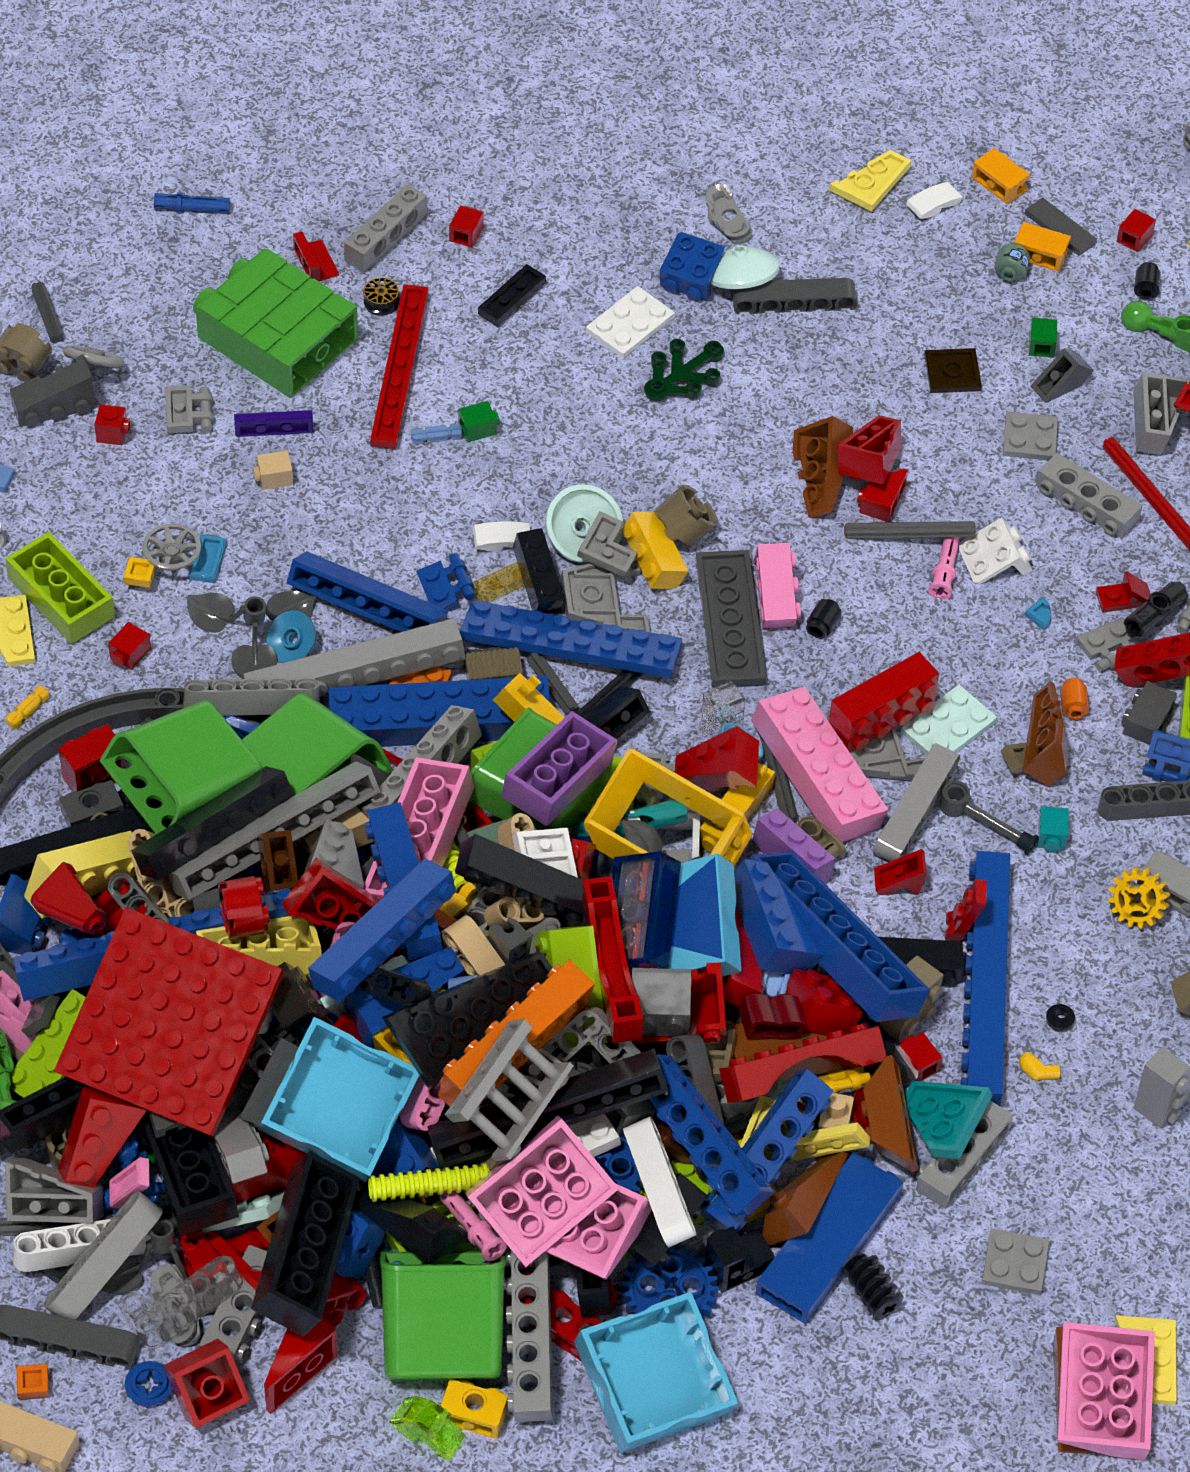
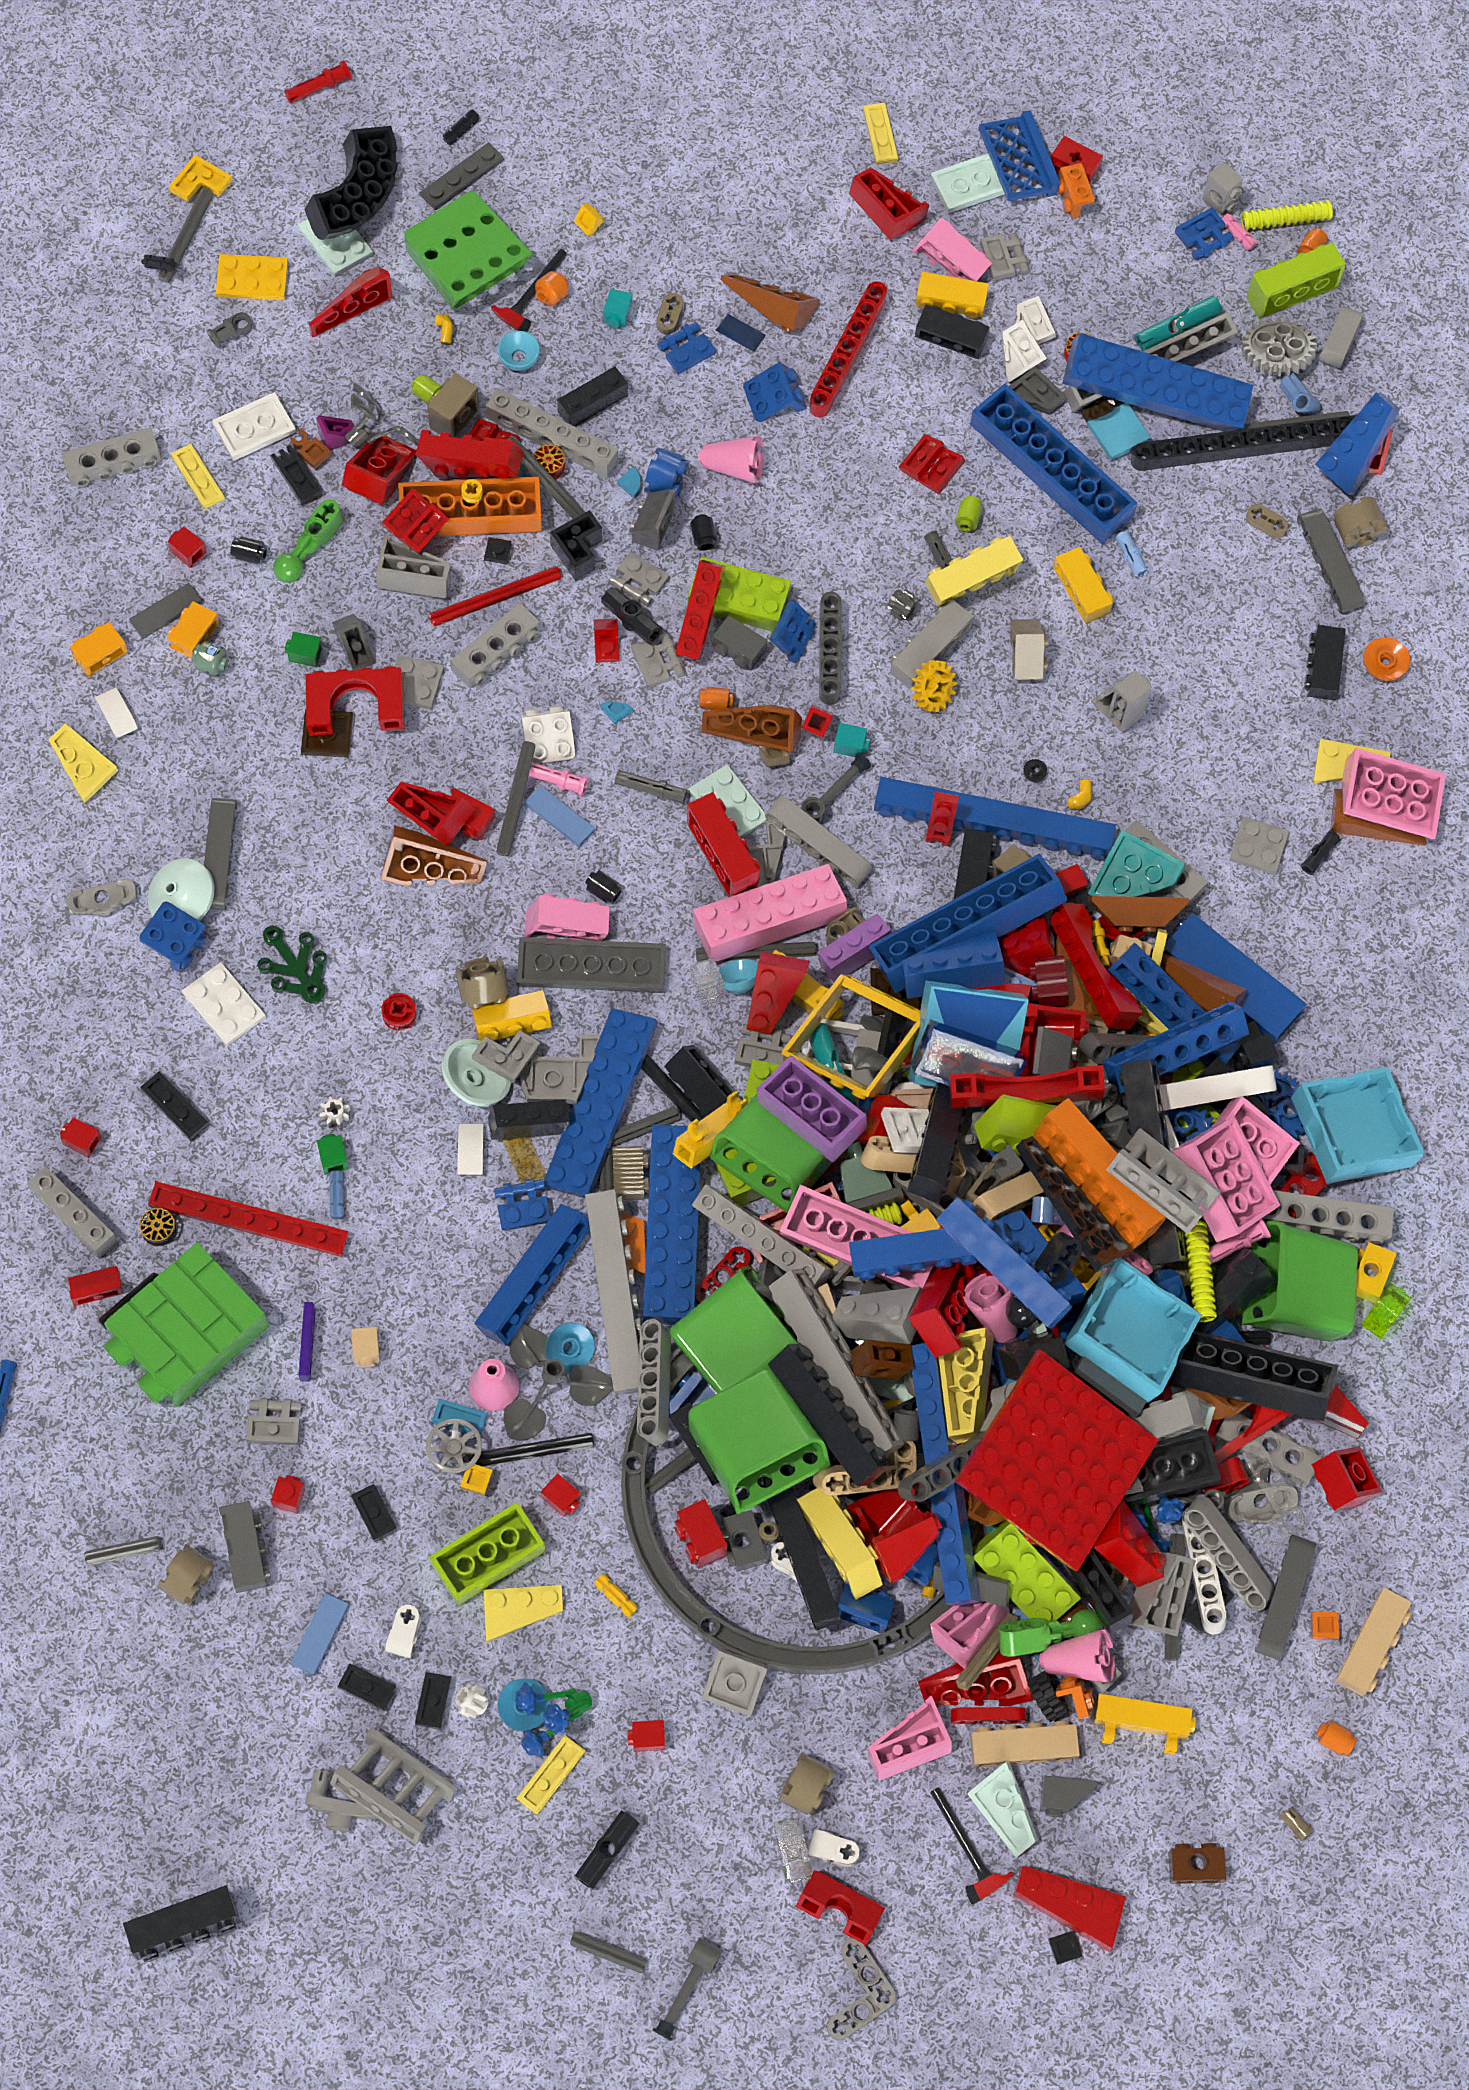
camera: 85 degrees left, 15 degrees up
(94, 356) = (201, 1504): light grey plate -> none
(99, 497) = (374, 1512): none -> black plate
(128, 1181) = (1169, 1522): bright pink tile -> none
(139, 1375) = (1339, 1523): blue gear -> none
(178, 622) = (534, 1449): none -> black axle
(242, 907) = (947, 1386): red brick -> none
(244, 573) = (494, 1385): none -> bright pink cone
(524, 418) = (334, 1119): none -> white gear
(645, 460) = (398, 1011): none -> red wheel
(872, 1285) = (1281, 950): black piece -> none
(900, 873) = (887, 866): red slope -> none
(901, 575) = (559, 816): none -> medium blue tile
(949, 672) = (660, 789): none -> dark grey pin
(997, 354) = (326, 687): none -> red arch
(1019, 1328) = (1320, 852): none -> black pin
(1067, 789) = (817, 720): none -> red brick

